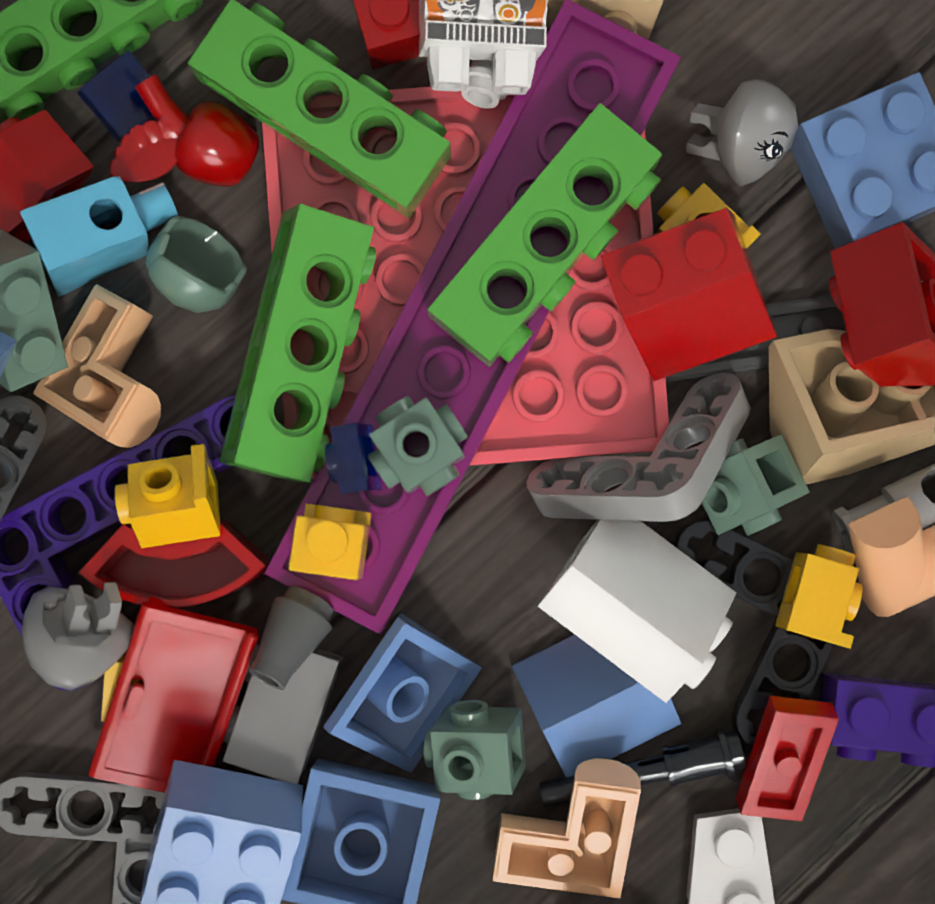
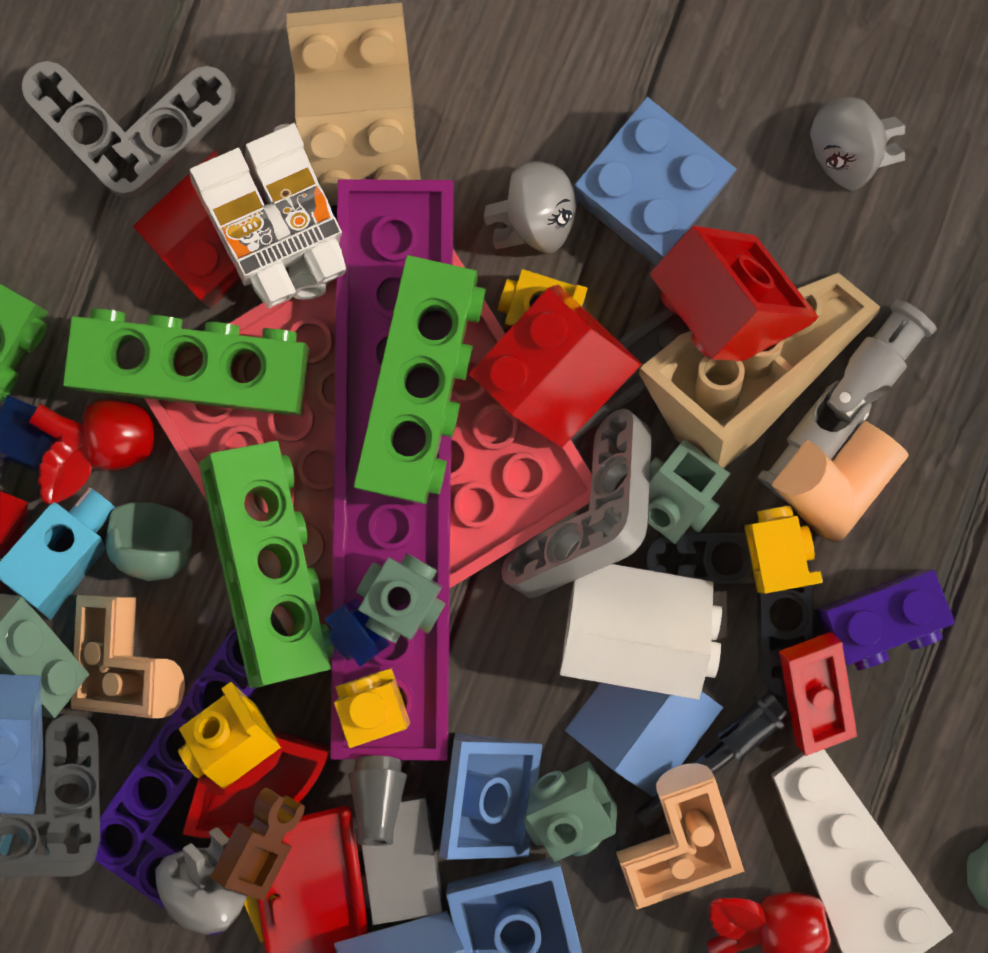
camera: 30 degrees left, 0 degrees up
(143, 627) = (258, 852): none -> reddish brown plate

